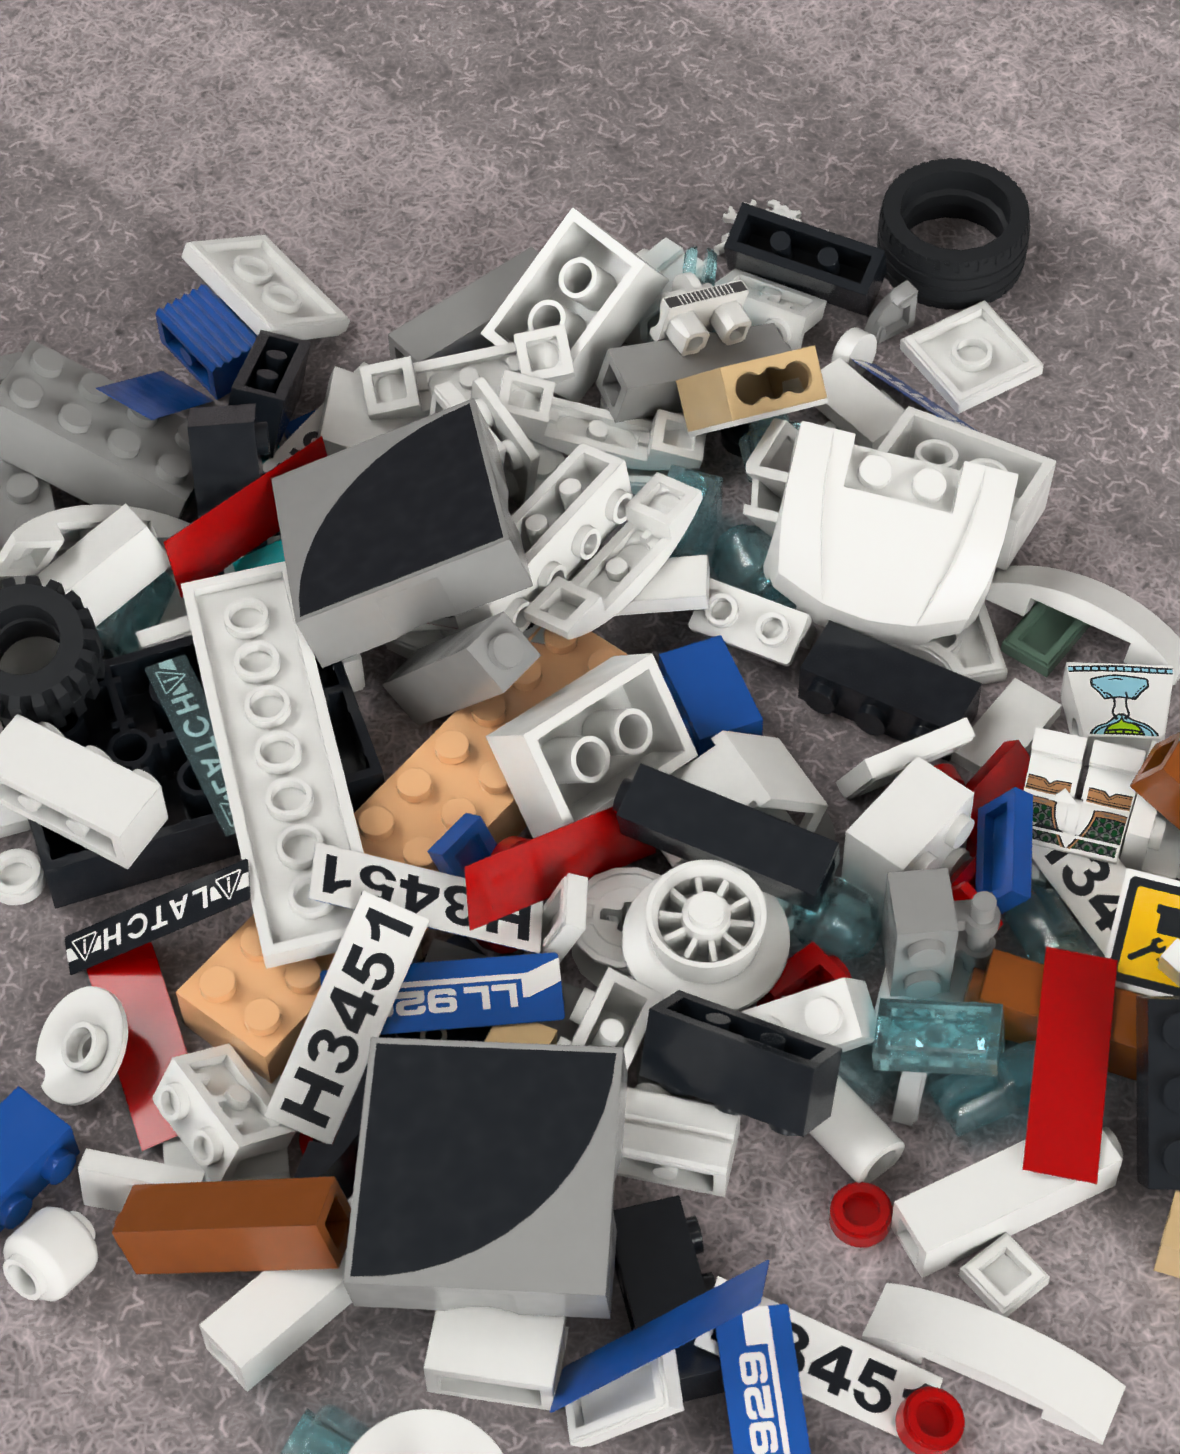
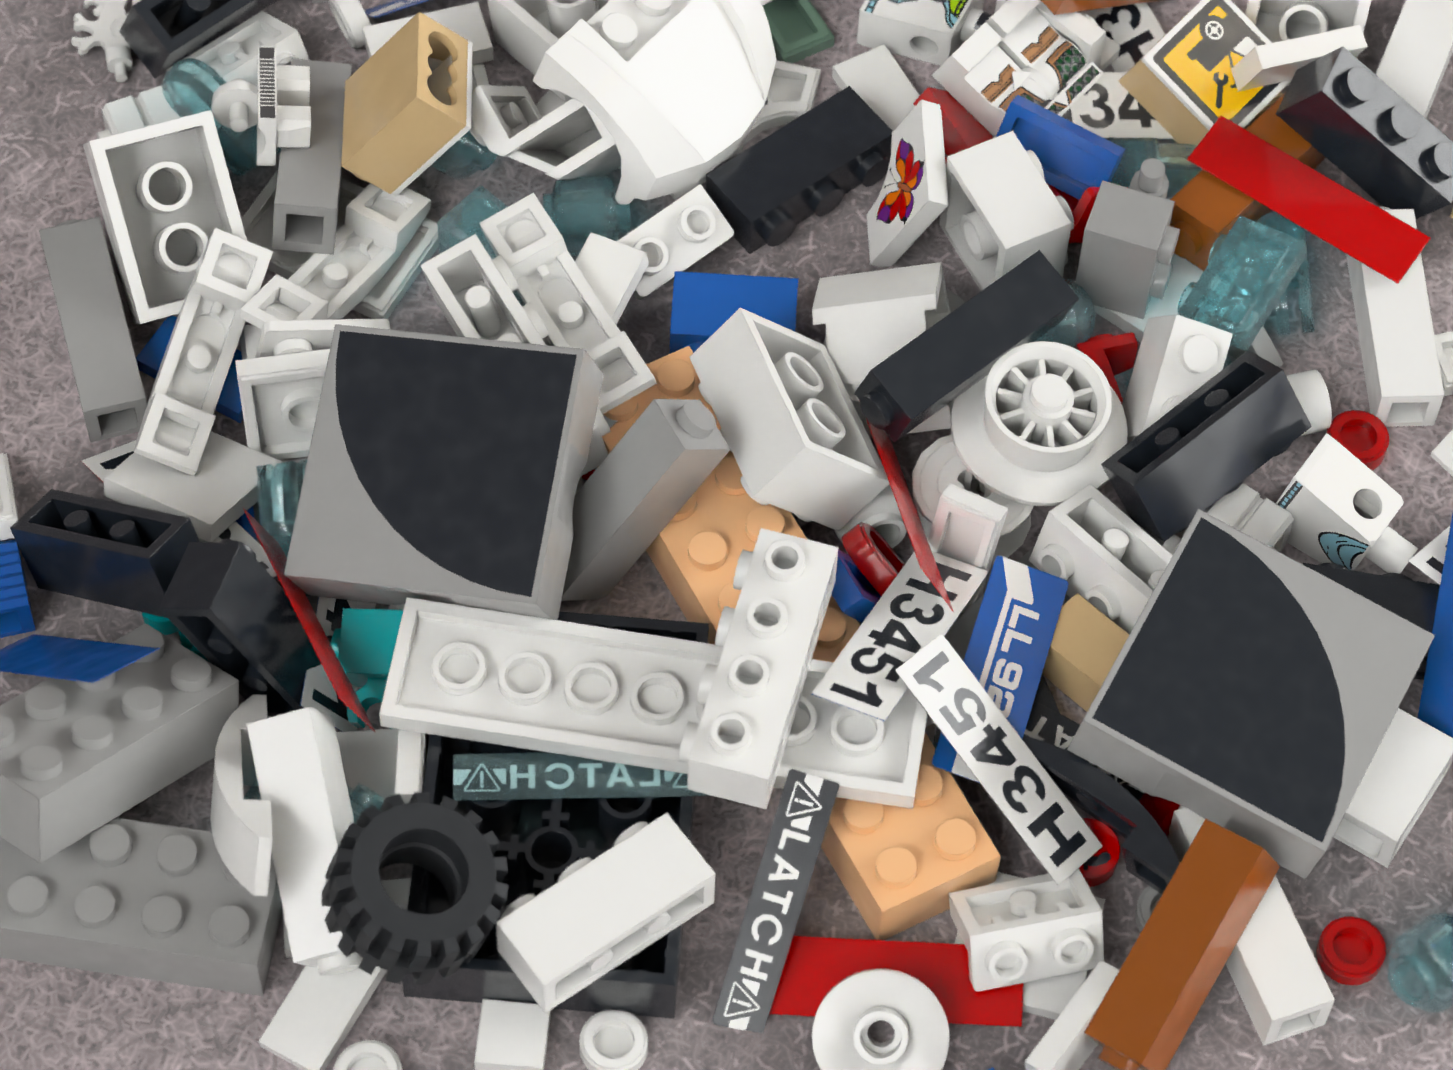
camera: 70 degrees left, 5 degrees up
(317, 796) = (760, 669): none -> white brick
(323, 1381) = (1351, 950): none -> red tile
(757, 1194) = (1344, 511): none -> white torso

